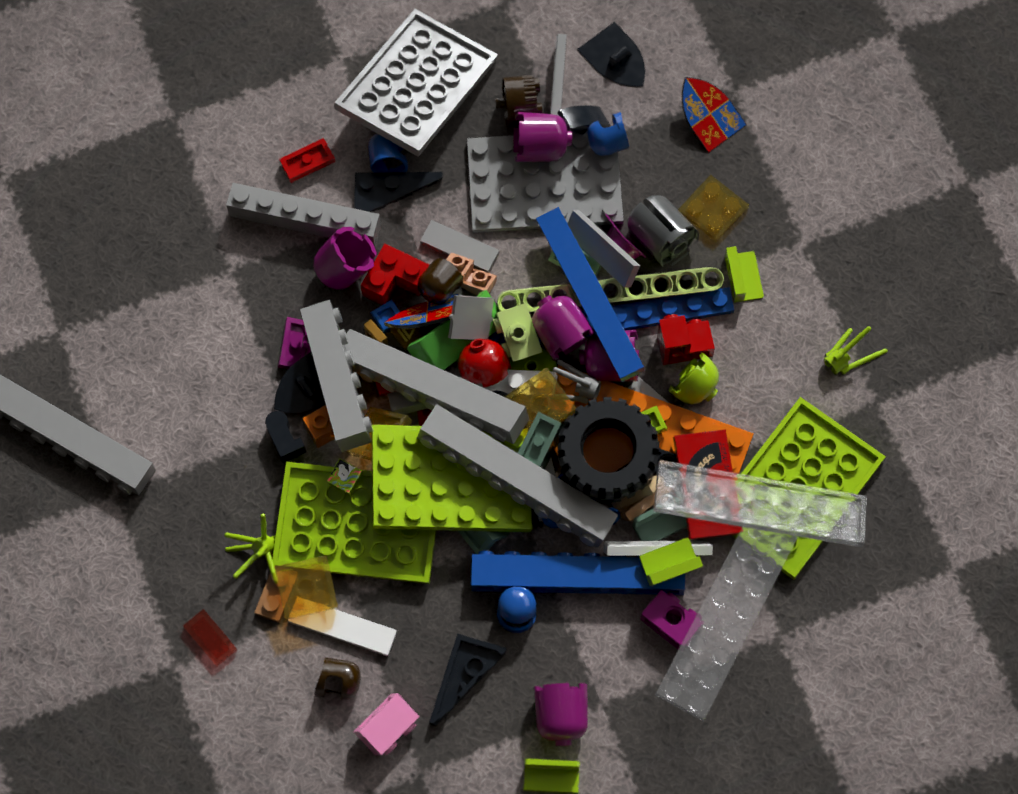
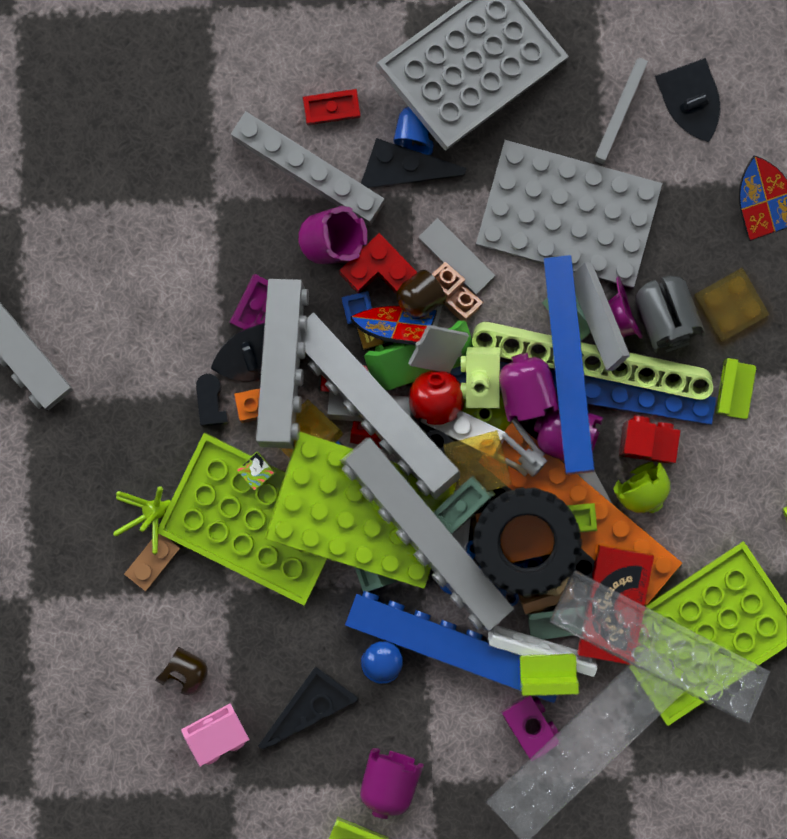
camera: 15 degrees right, 15 degrees up
(210, 637) = (72, 583): clear red tile -> none
(306, 587) = (181, 570): clear yellow plate -> none
(349, 629) = (206, 617): white tile -> none
(372, 331) = (338, 325): pearl gold tile -> none
(519, 96) = (573, 120): dark brown piece -> none
(540, 137) = (579, 172): magenta cylinder -> none
(581, 117) = (631, 162): black slope -> none
(610, 139) = (649, 198): blue helmet -> none

